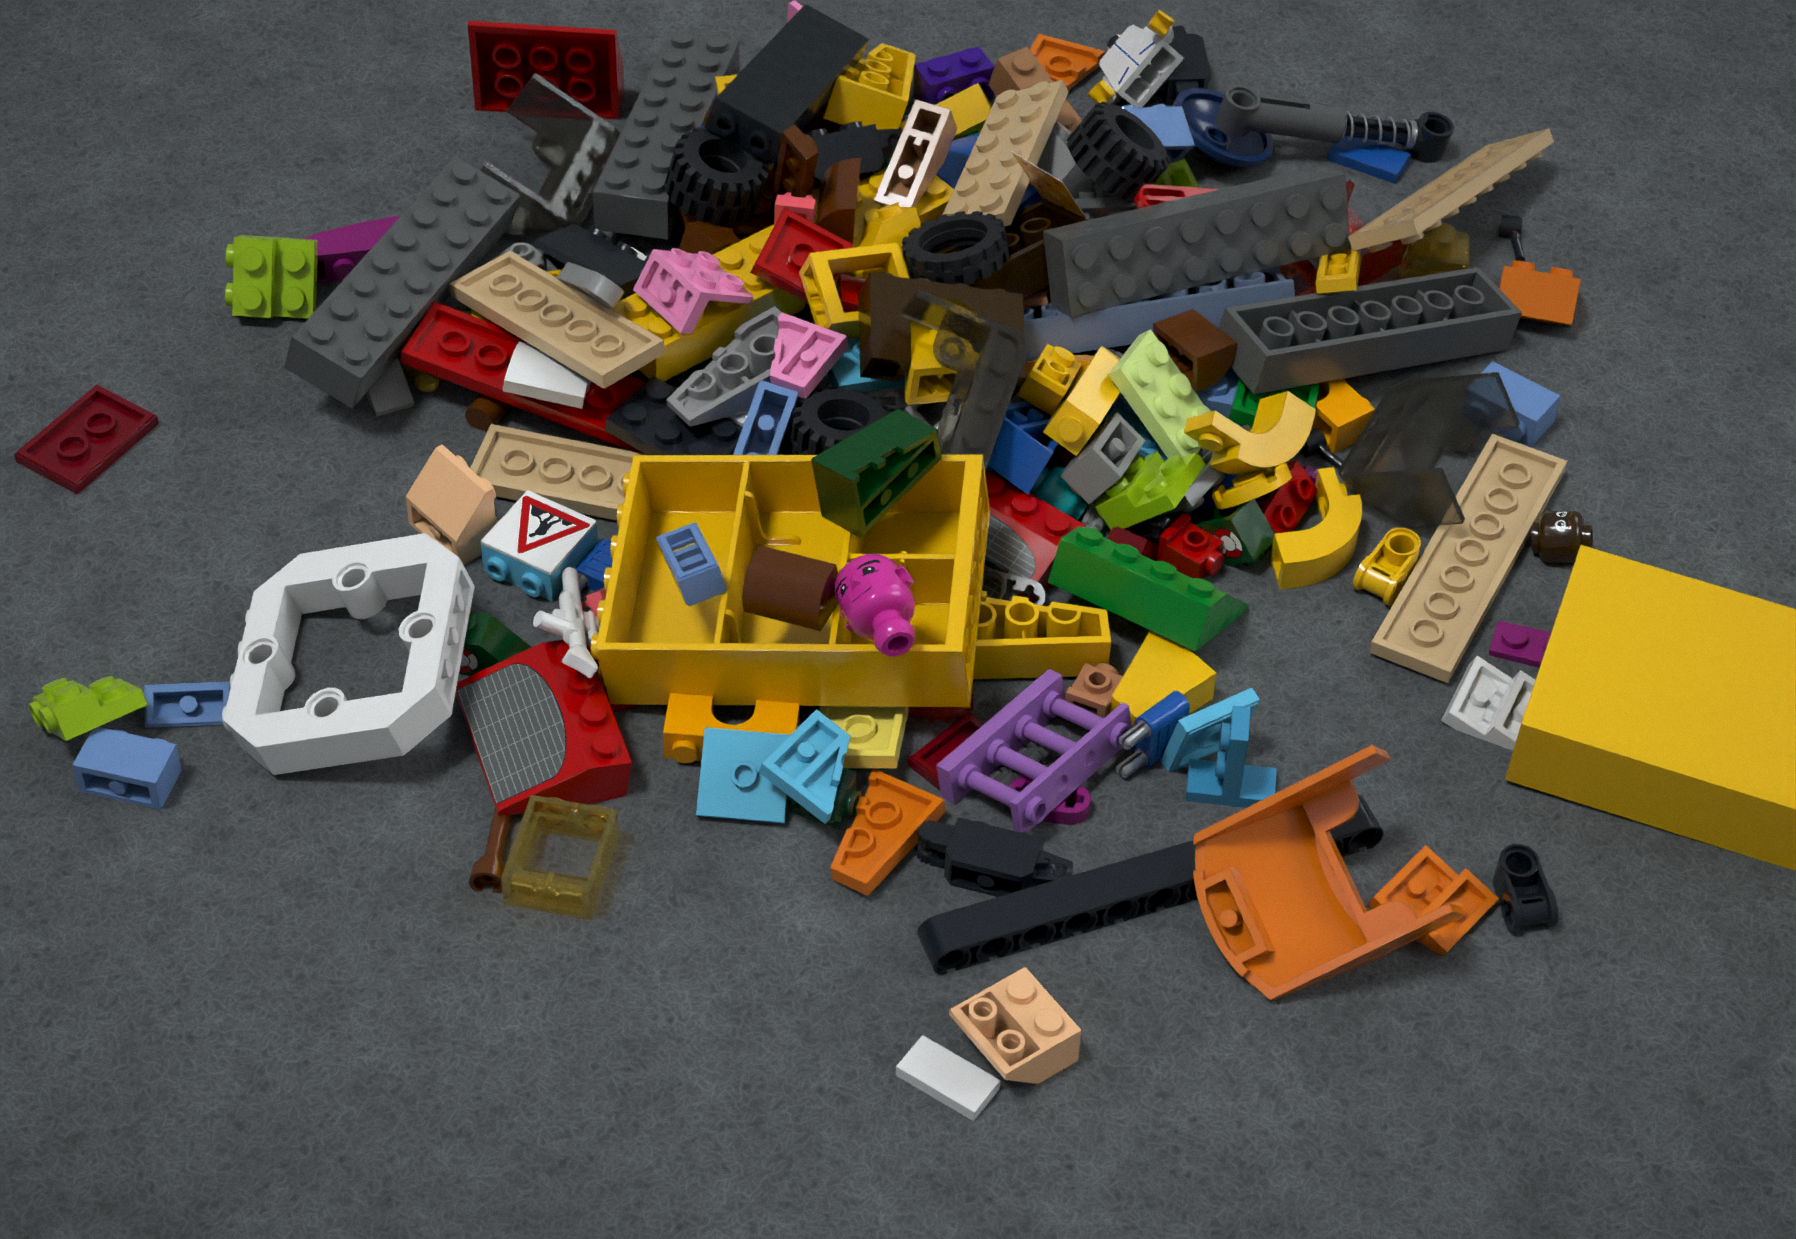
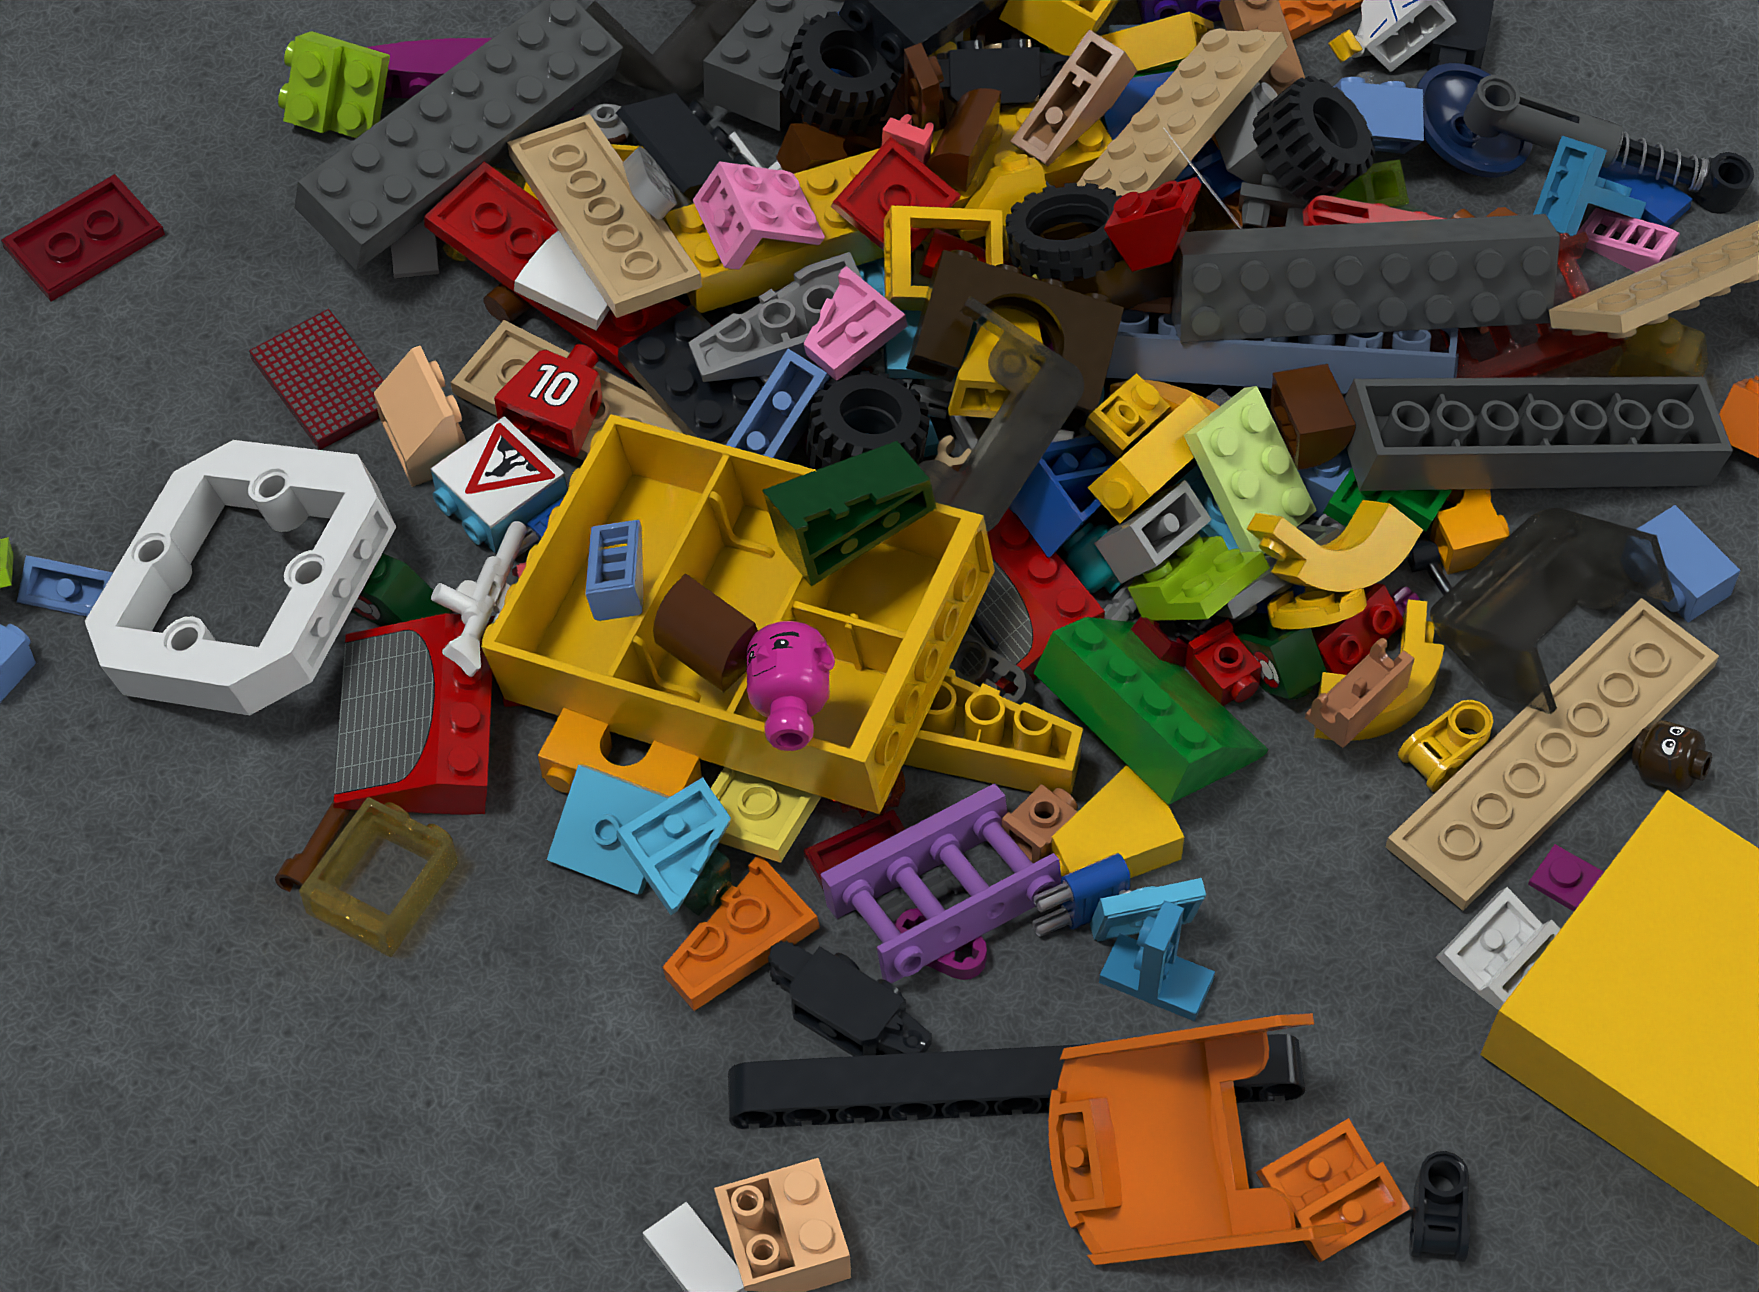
camera: 20 degrees right, 10 degrees up
(345, 500) = (321, 378): none -> dark red tile
(564, 468) = (554, 398): none -> red torso
(1030, 222) = (1152, 223): none -> red slope
(1313, 538) = (1361, 694): none -> nougat hinge
(1325, 147) = (1575, 183): none -> dark azure bracket
(1338, 271) = (1520, 353): yellow tile -> none
(1382, 191) = (1634, 257): none -> bright pink slope

